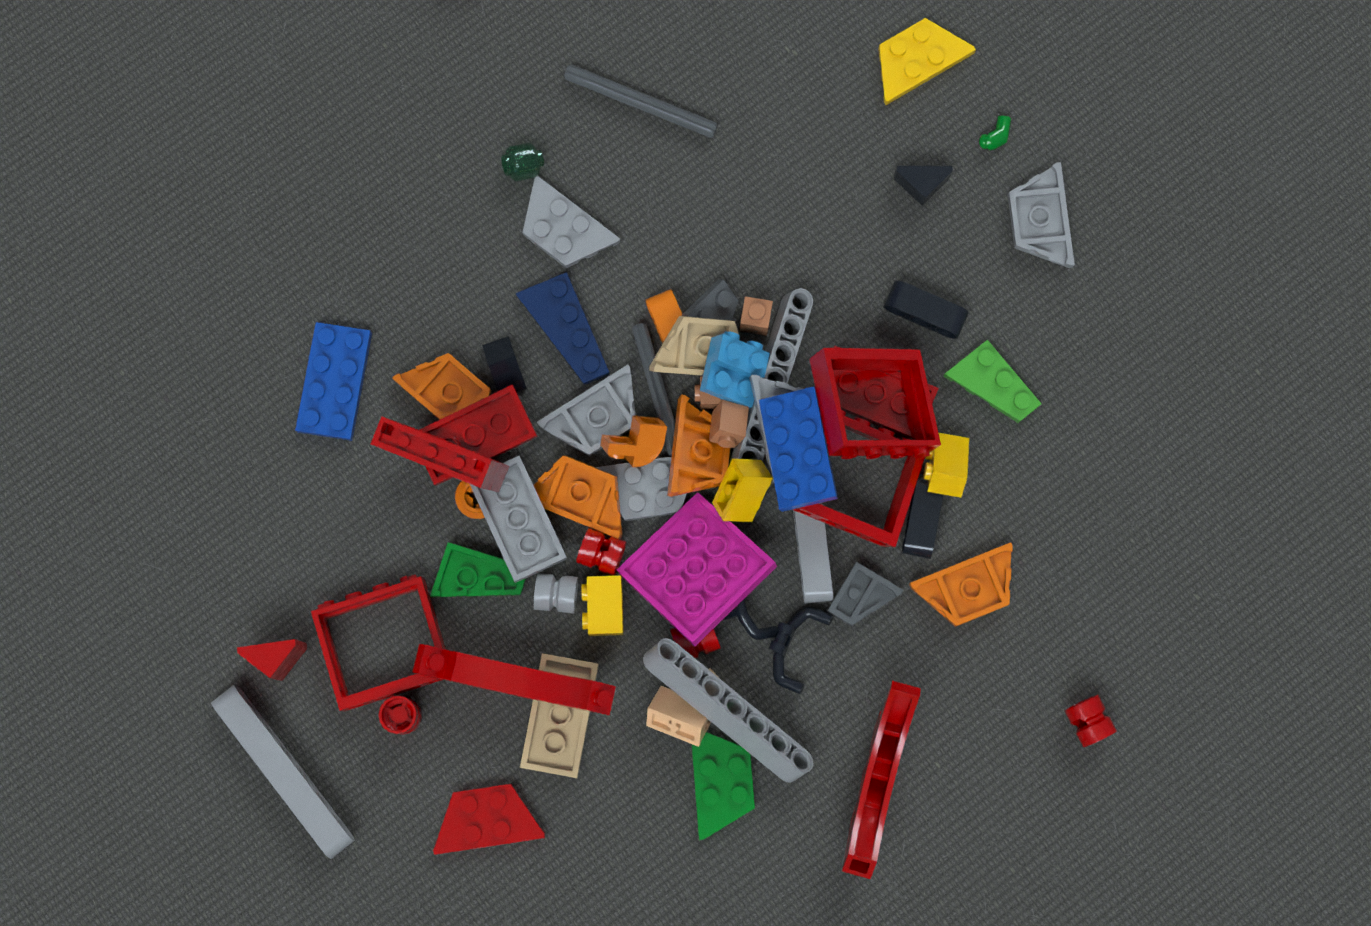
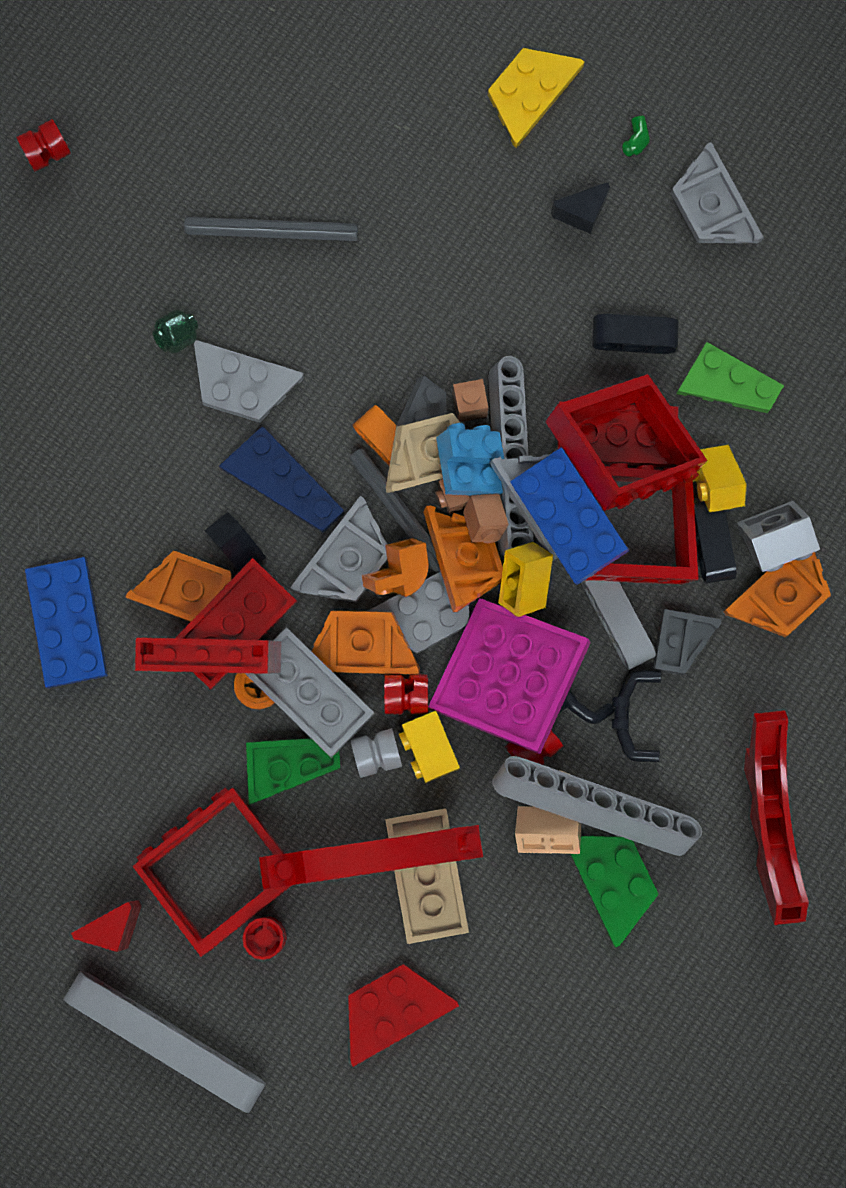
camera: 25 degrees left, 0 degrees up
(982, 536) = (779, 536): none -> light grey slope

